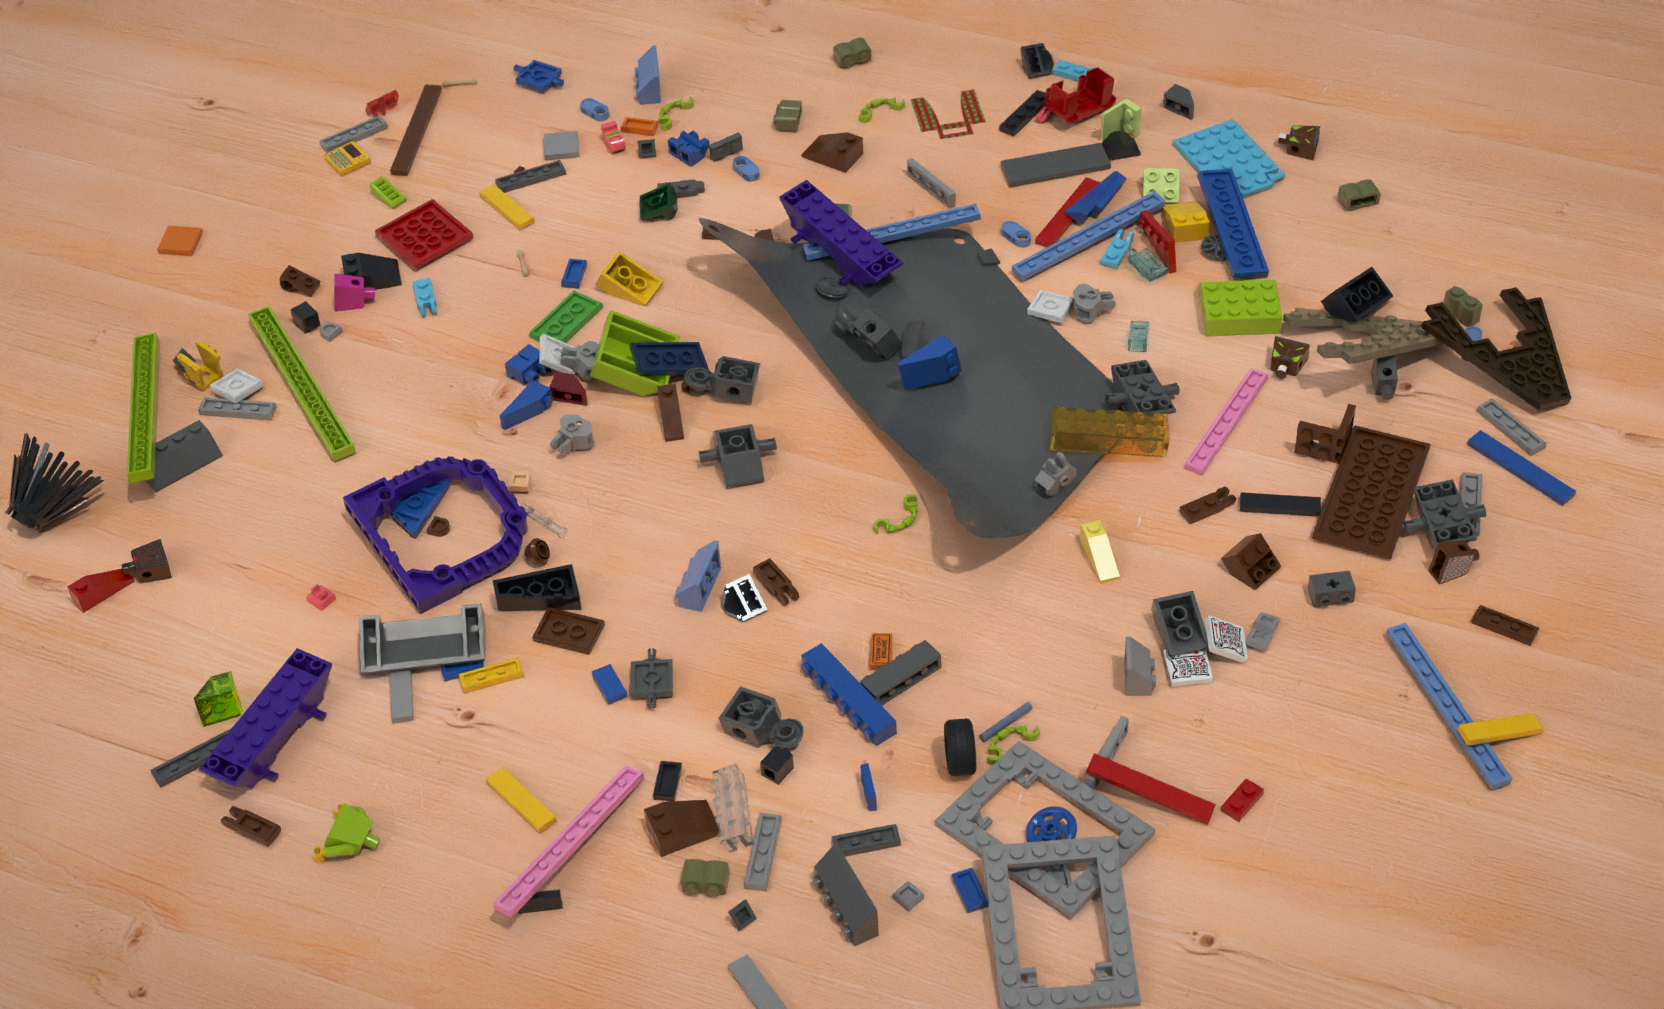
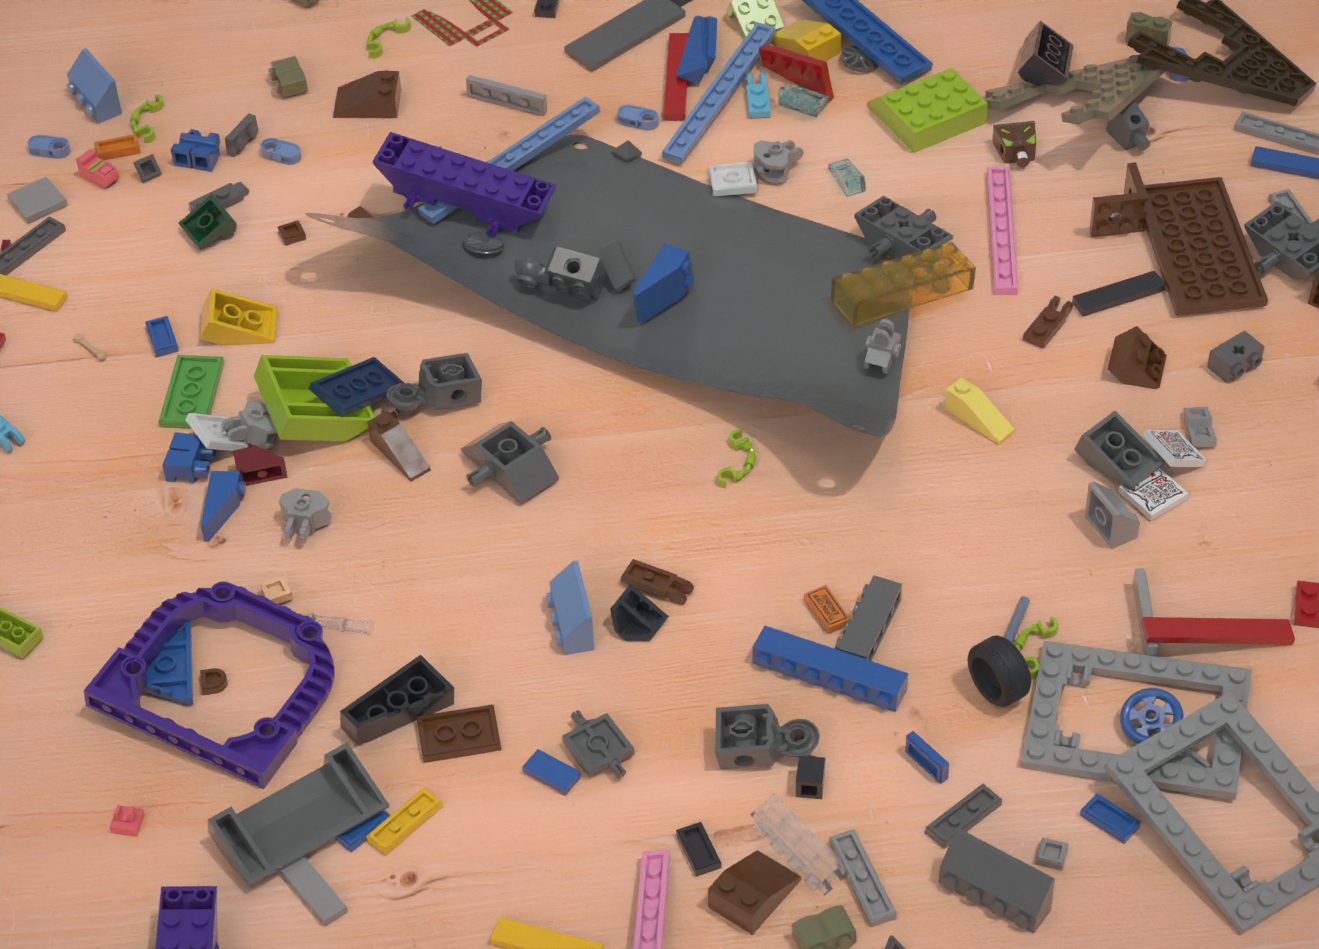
camera: 30 degrees left, 0 degrees up
(537, 552) = (358, 660): reddish brown cone -> none

